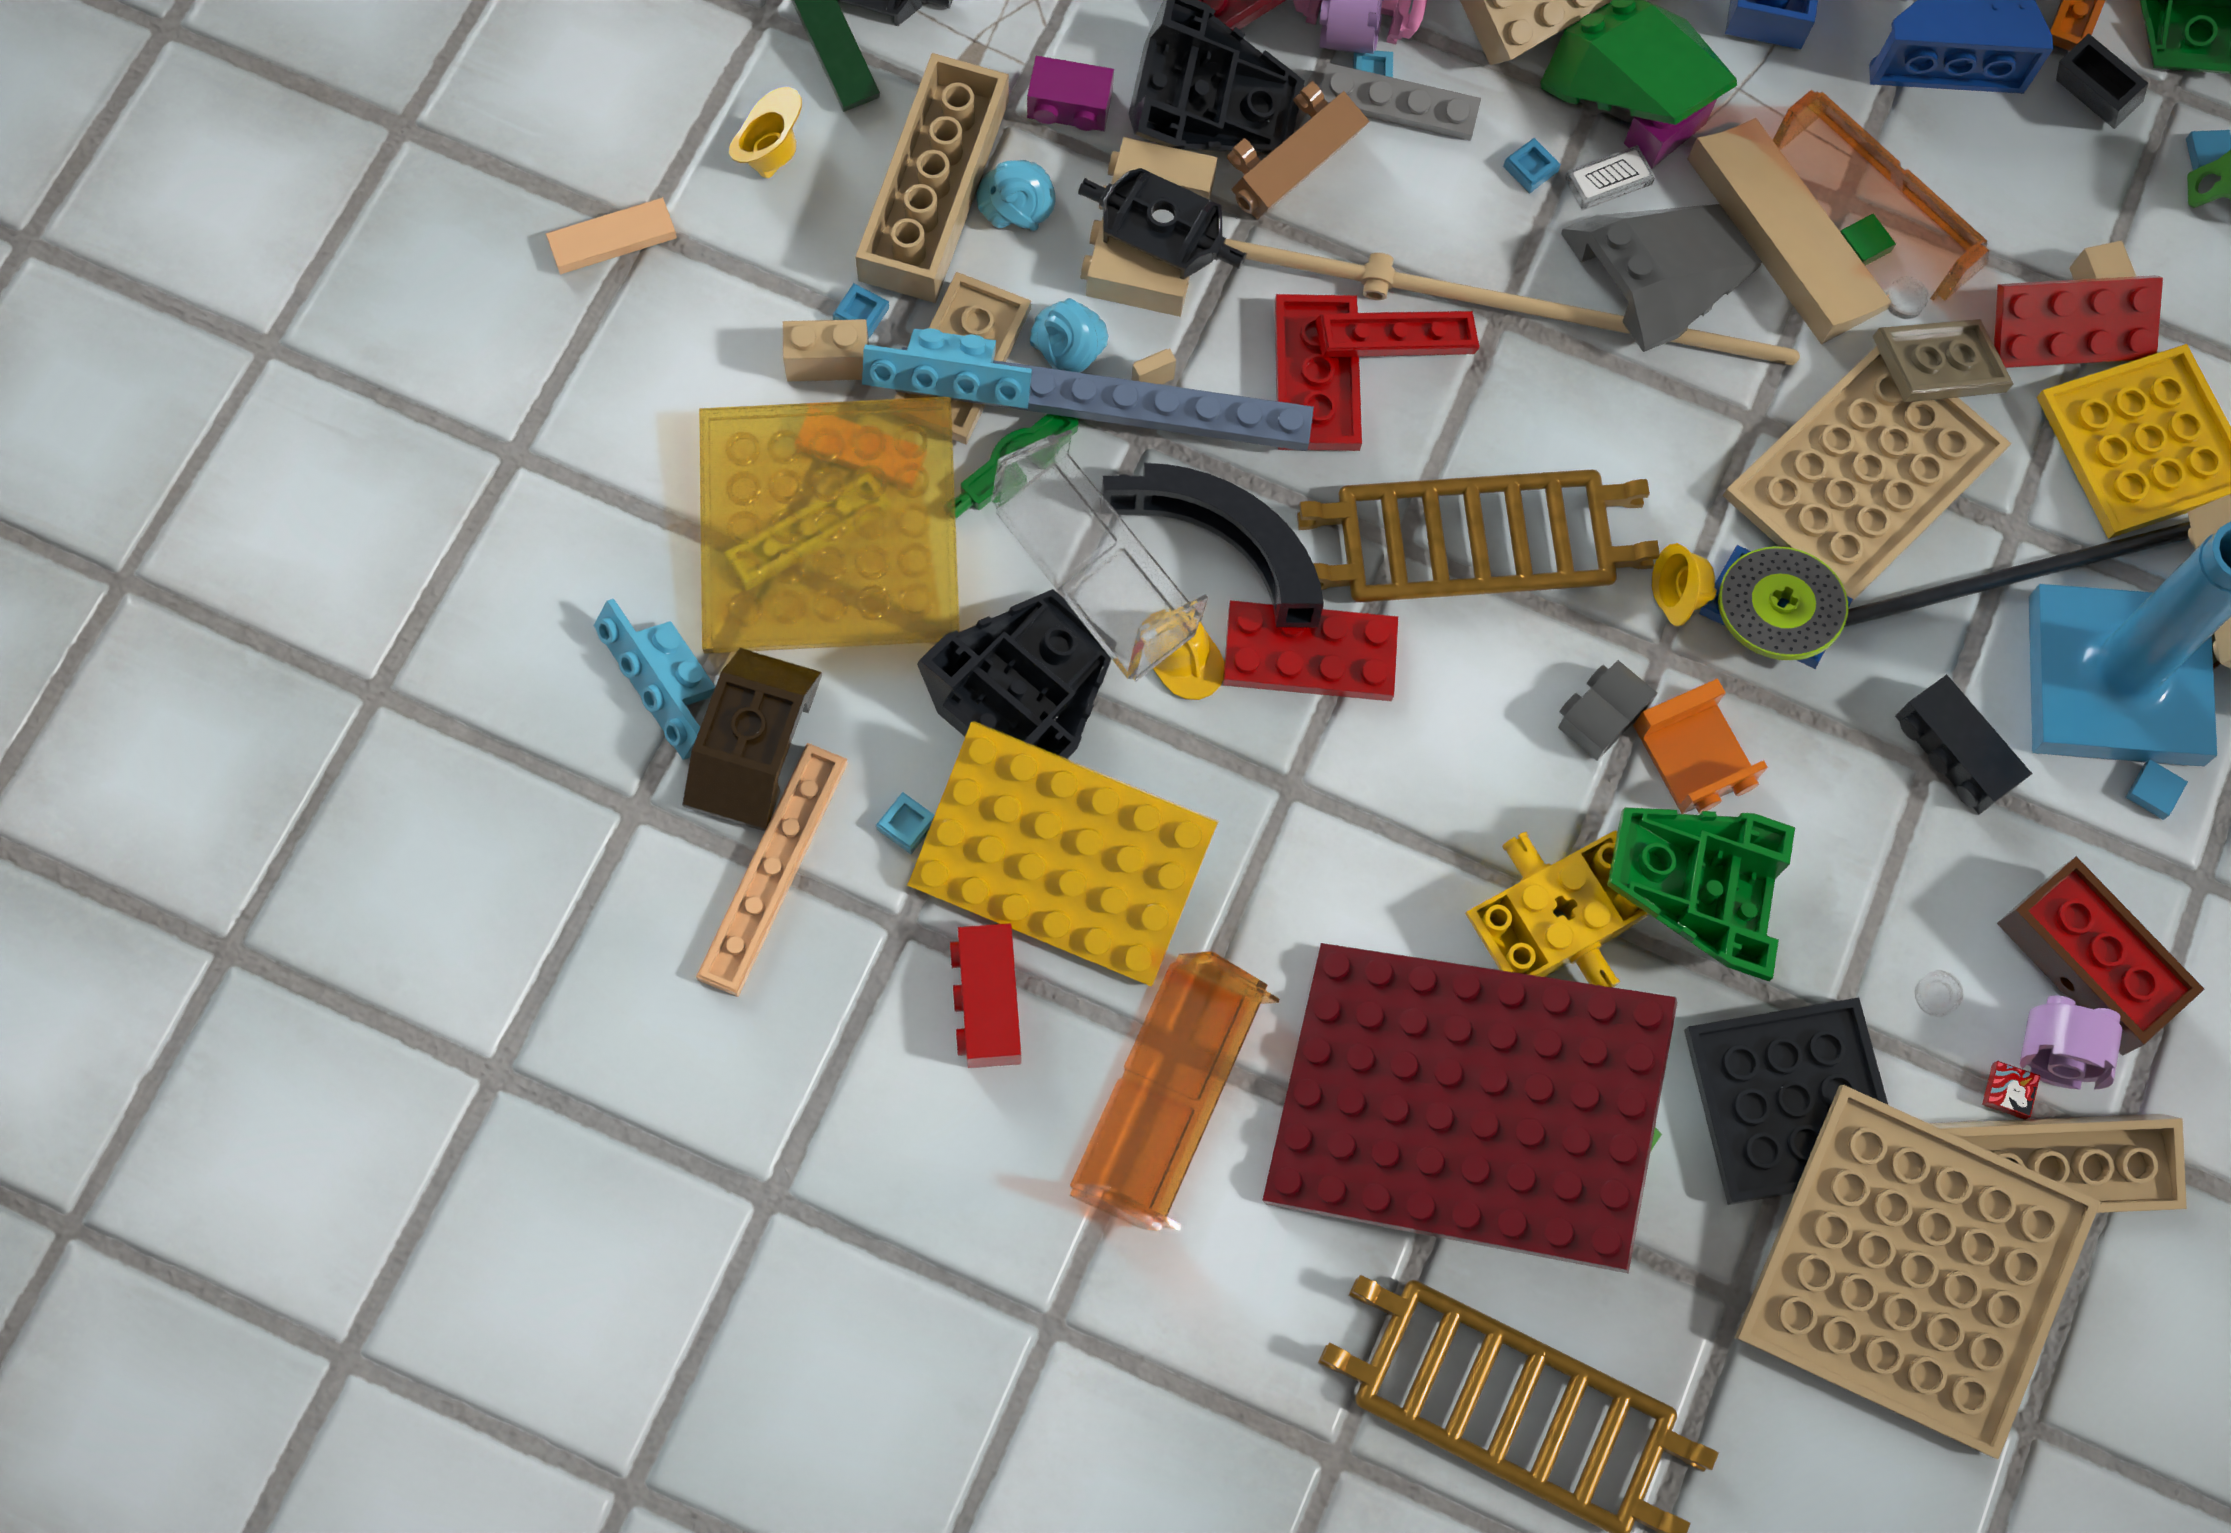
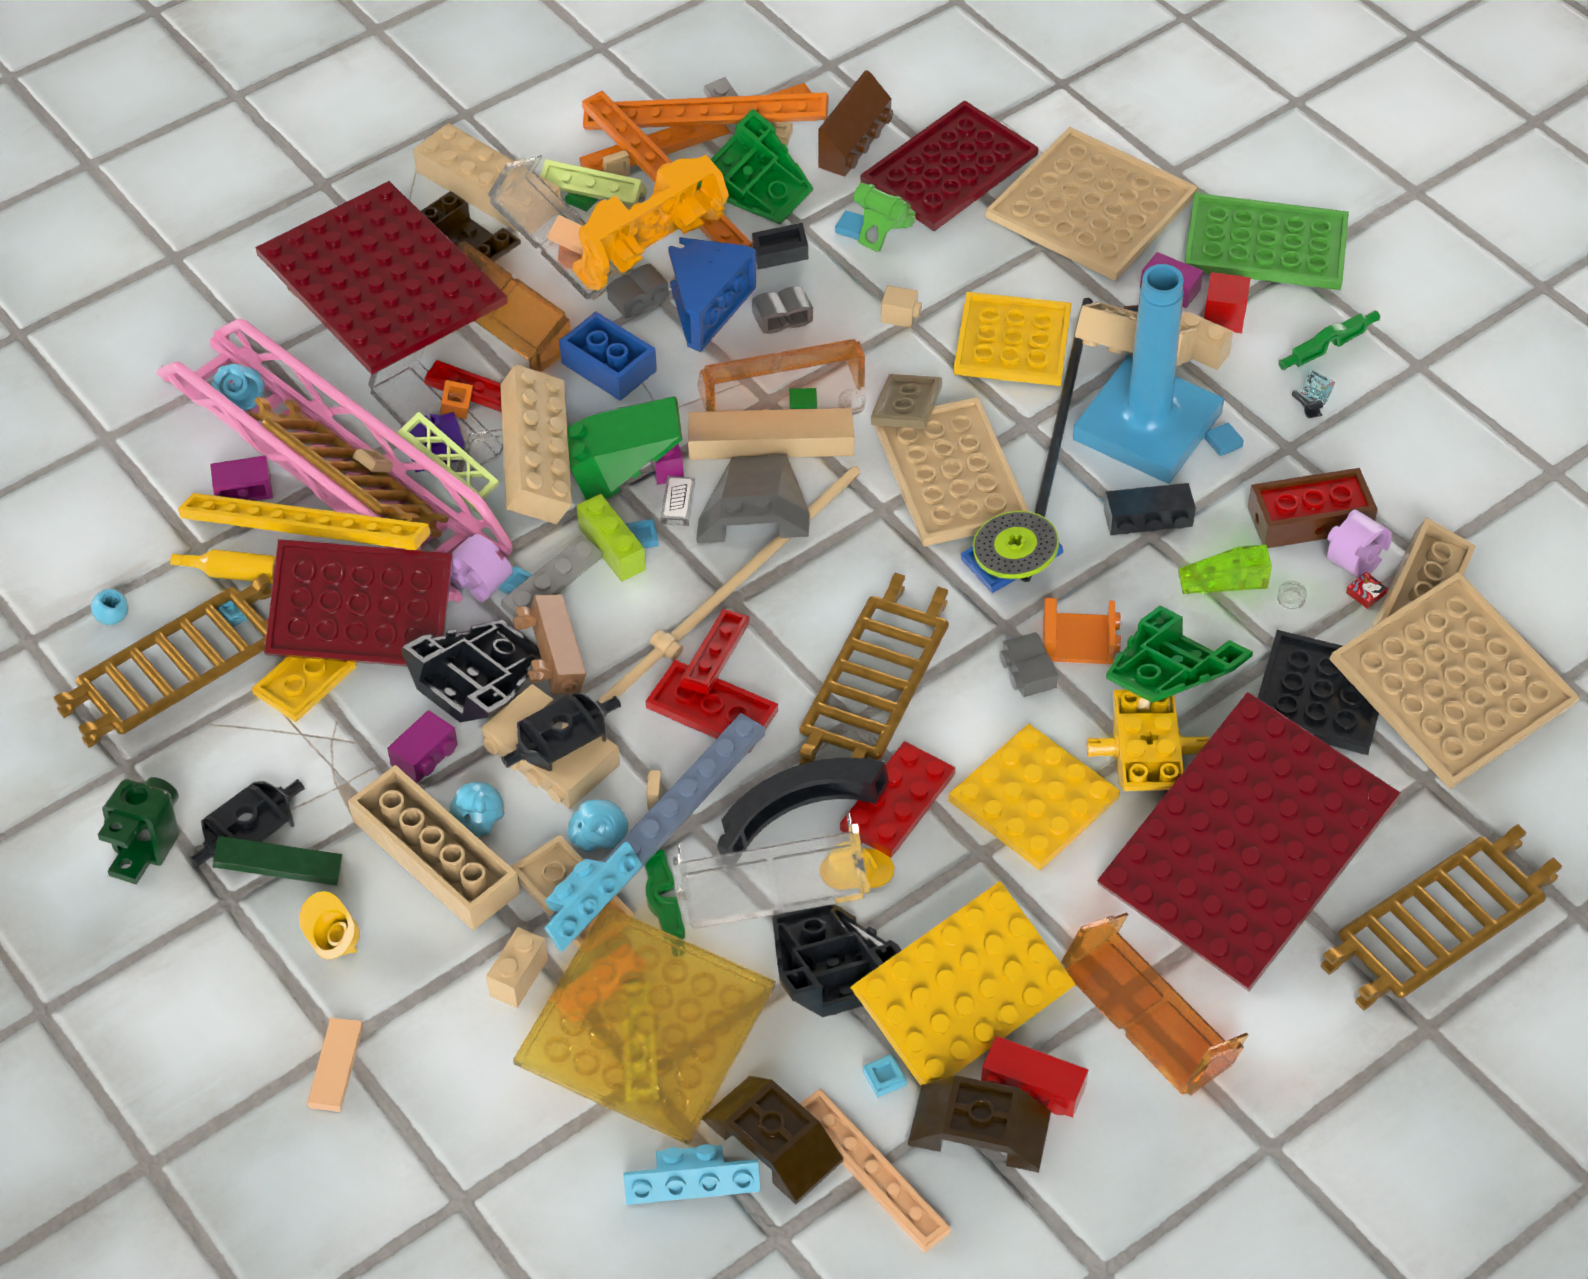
camera: 55 degrees left, 20 degrees down
(862, 305) = (494, 938): dark azure tile -> none
(889, 966) = (982, 1117): none -> dark brown slope
(1410, 810) = (1034, 796): none -> yellow plate
(1496, 131) = (611, 536): none -> lime brick
(1682, 583) = (973, 588): yellow piece -> none
(1920, 891) = (1228, 571): none -> clear neon green slope
(1999, 139) = (782, 310): none -> dark grey brick
(2078, 320) = (922, 329): red plate -> none

